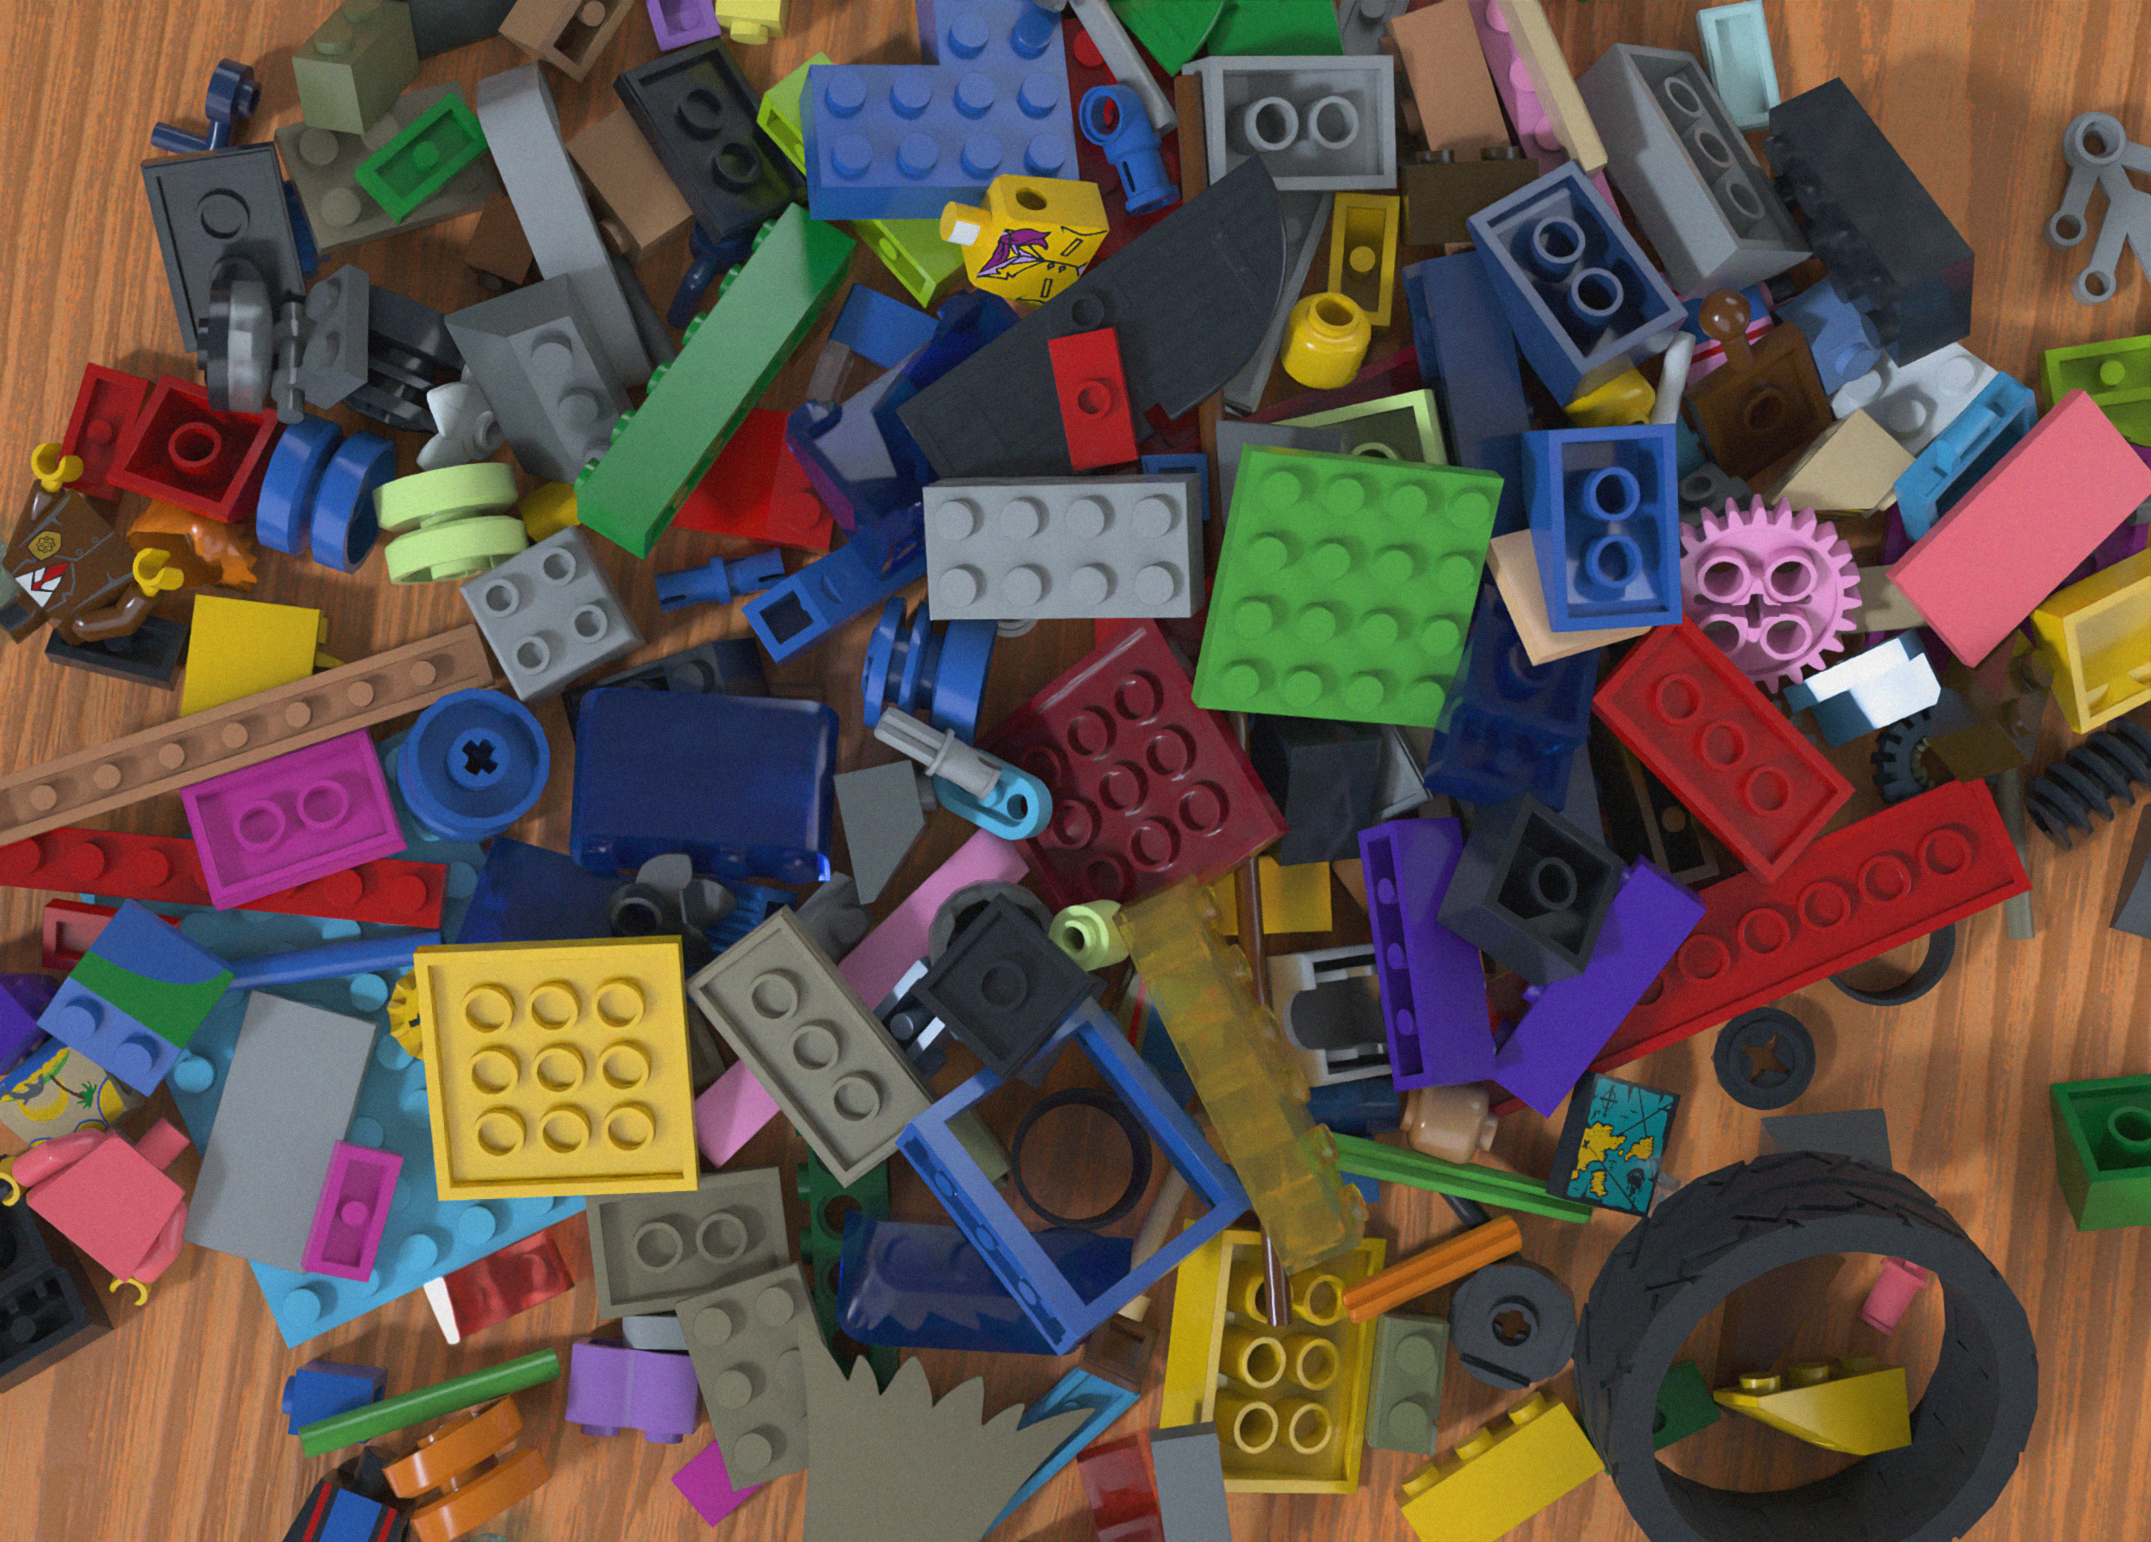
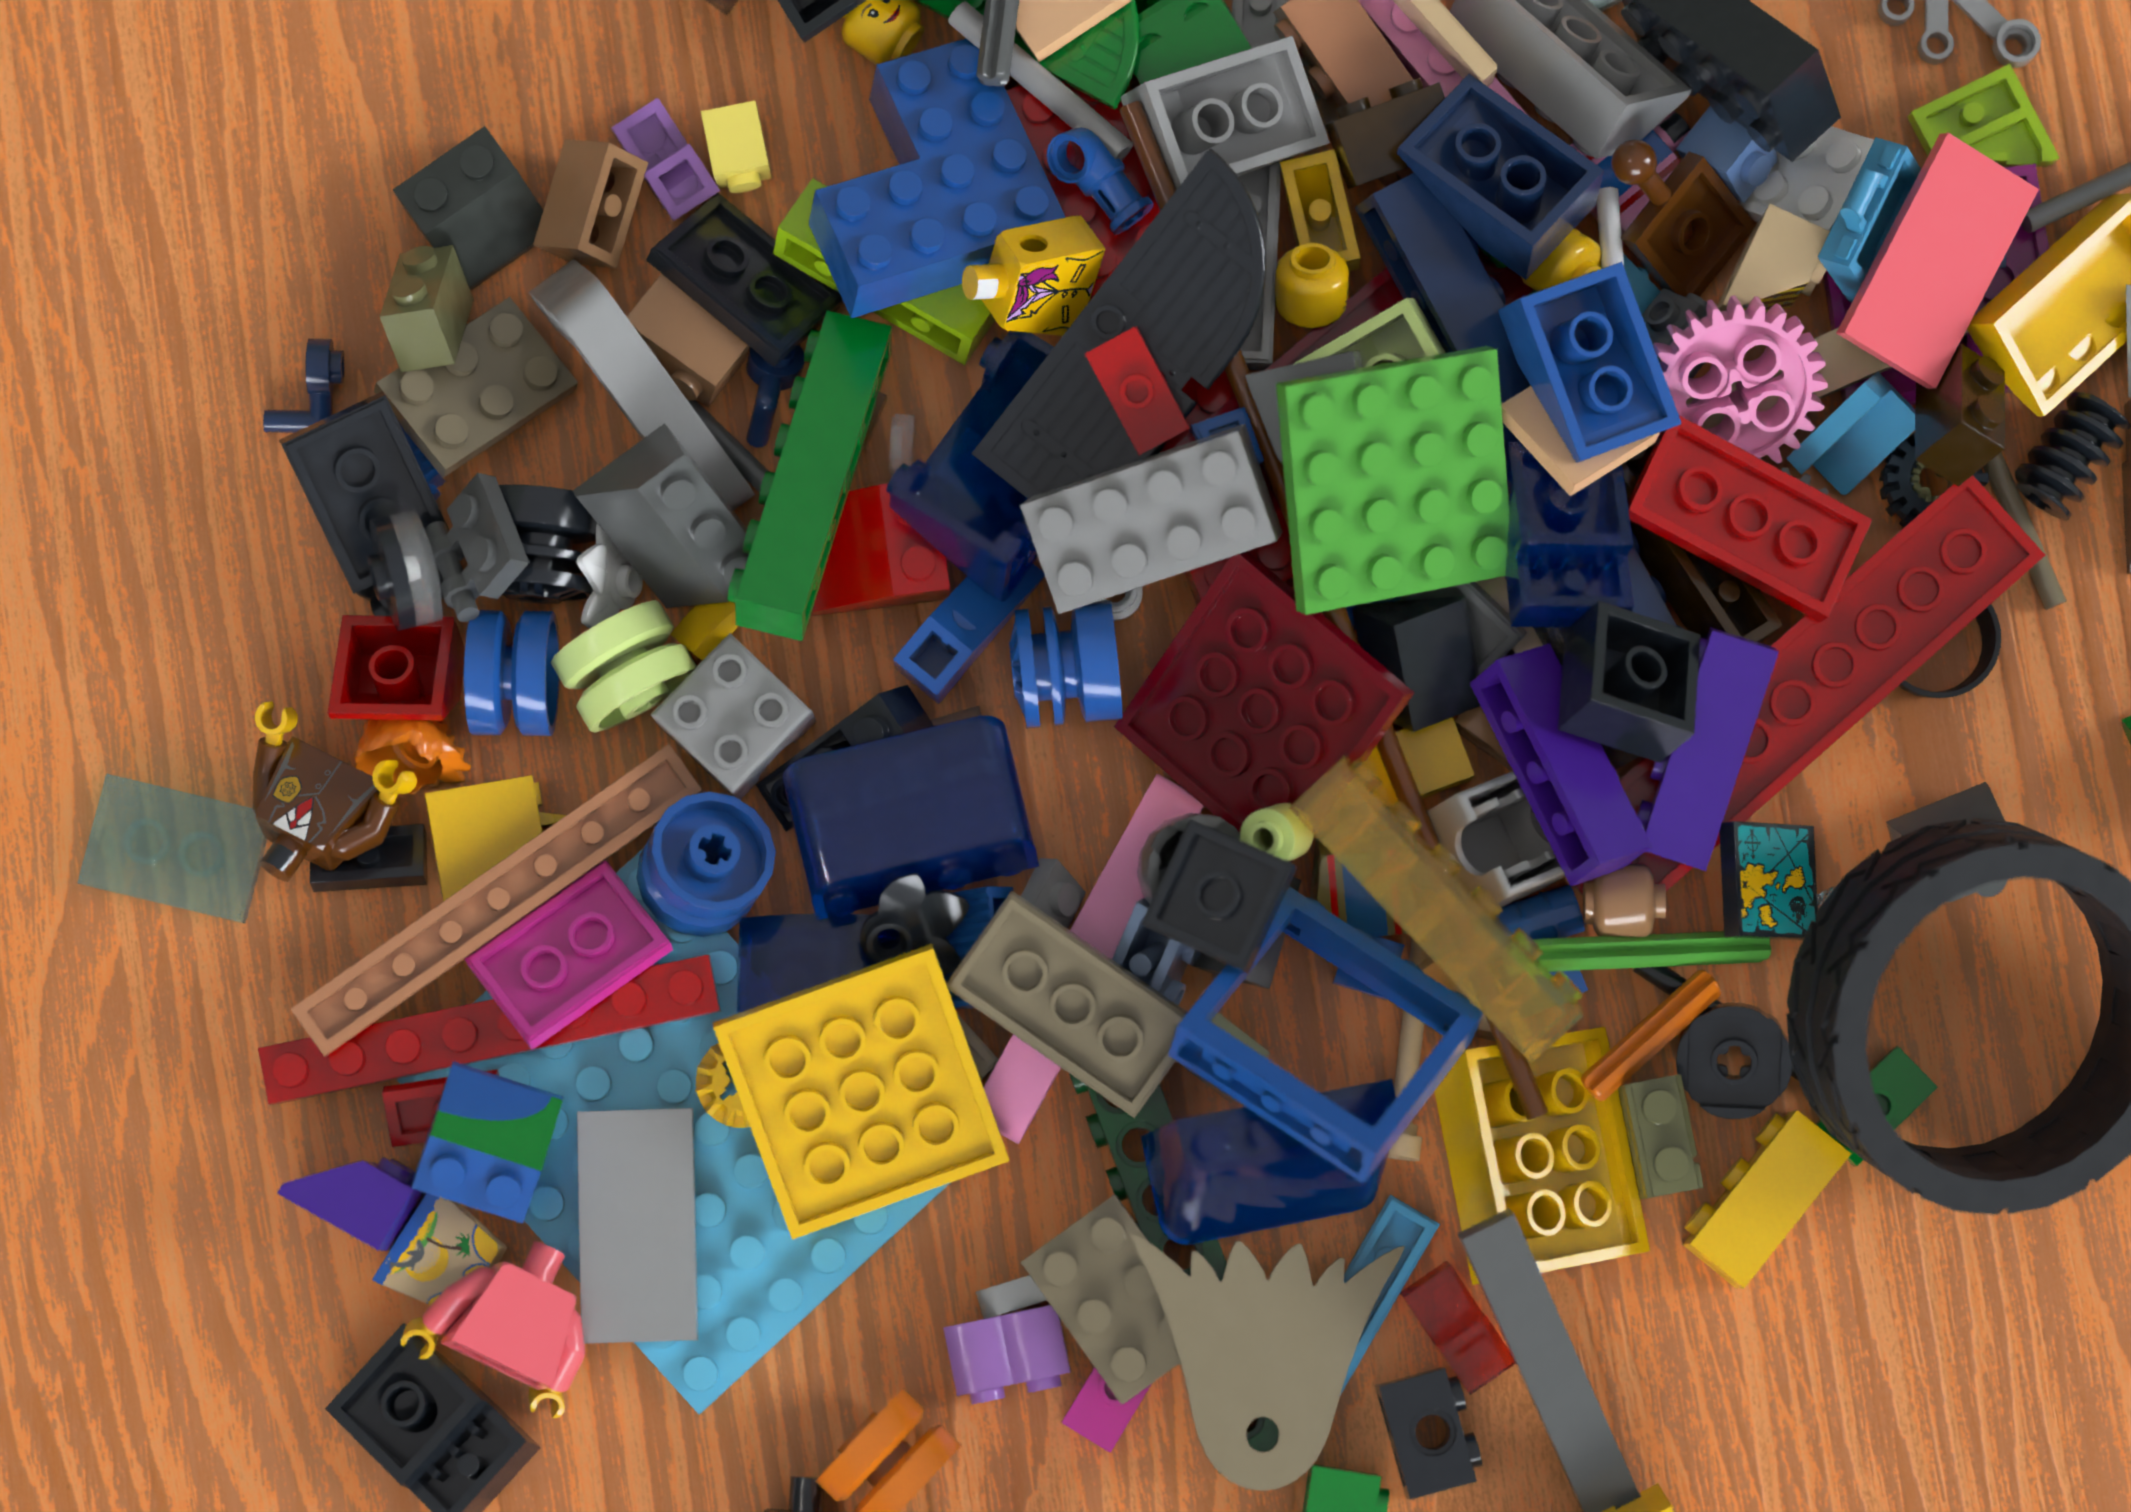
camera: 20 degrees left, 5 degrees down
(100, 425) = (301, 680): red plate -> none
(330, 960) = (638, 1066): blue piece -> none
(330, 1389) = (752, 1445): blue brick -> none
(351, 1211) = (720, 1271): dark pink plate -> none
(423, 158) = (509, 368): green plate -> none
(429, 1402) = (836, 1416): bright green piece -> none
(499, 1286) = (862, 1303): clear red slope -> none
(501, 249) = (596, 425): reddish brown brick -> none
(685, 1242) = (1008, 1211): dark tan plate -> none
(719, 580) = (863, 646): blue pin -> none
(880, 327) = (933, 392): blue slope -> none
(884, 821) = (1068, 798): dark grey slope -> none
(939, 752) = (1099, 724): light grey axle -> none
(1001, 809) = (1156, 750): medium azure plate -> none
(1119, 1352) = (1409, 1190): reddish brown tile -> none
(1135, 1132) = (1347, 990): black tyre -> none
(1766, 1315) = (1941, 972): reddish brown slope -> none
(1791, 1048) = (1894, 758): black gear -> none
(1836, 1407) = (2020, 1047): yellow slope -> none
(1892, 1294) = (2048, 927): coral axle -> none

